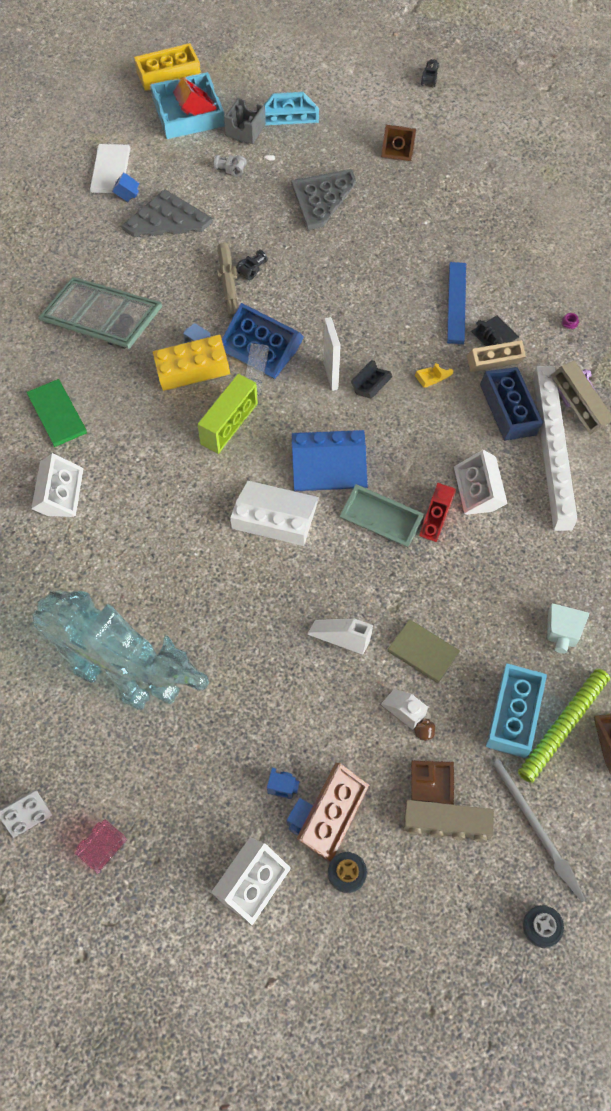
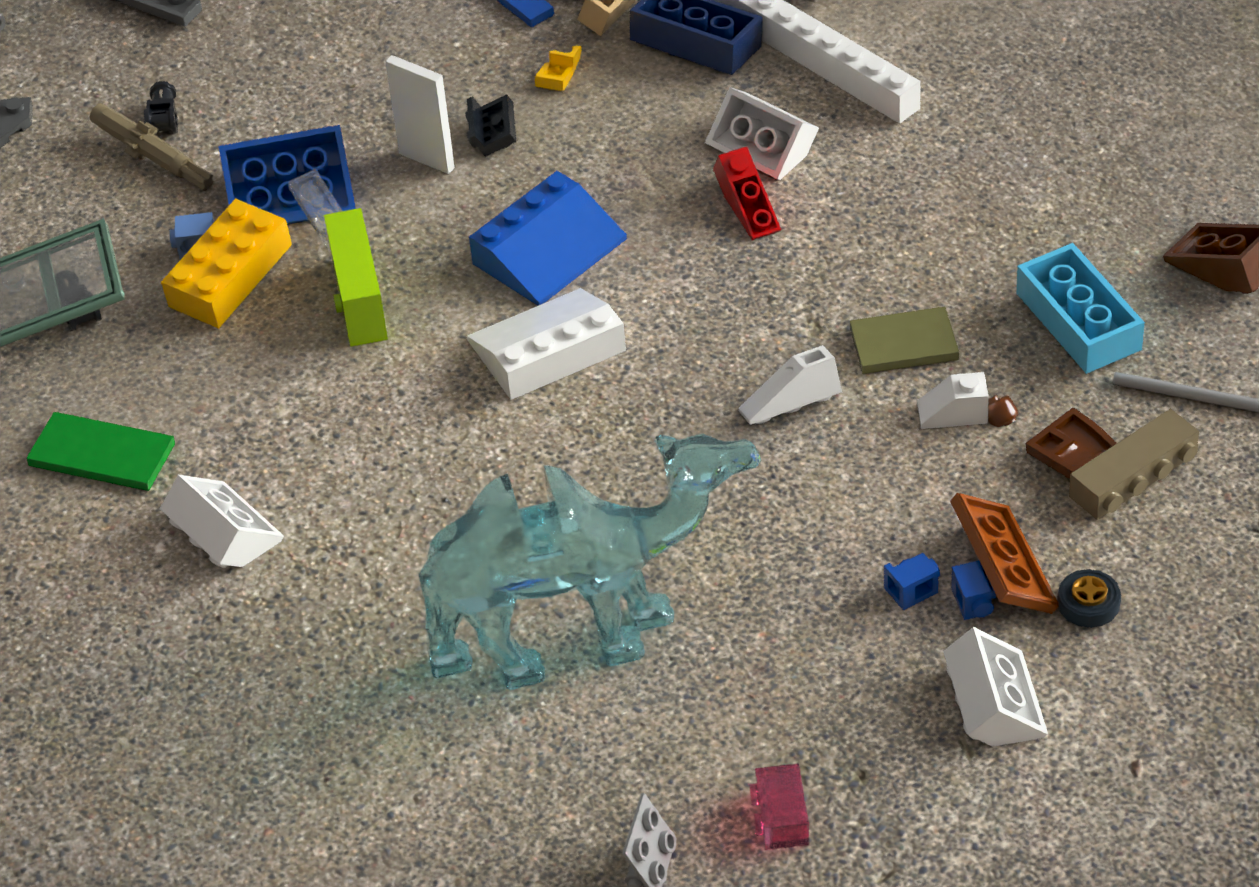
camera: 40 degrees left, 15 degrees down
(382, 515) = (684, 246): sand green slope -> none
(563, 725) = (1143, 286): lime piece -> none
(565, 626) = (1030, 196): light aqua torso -> none

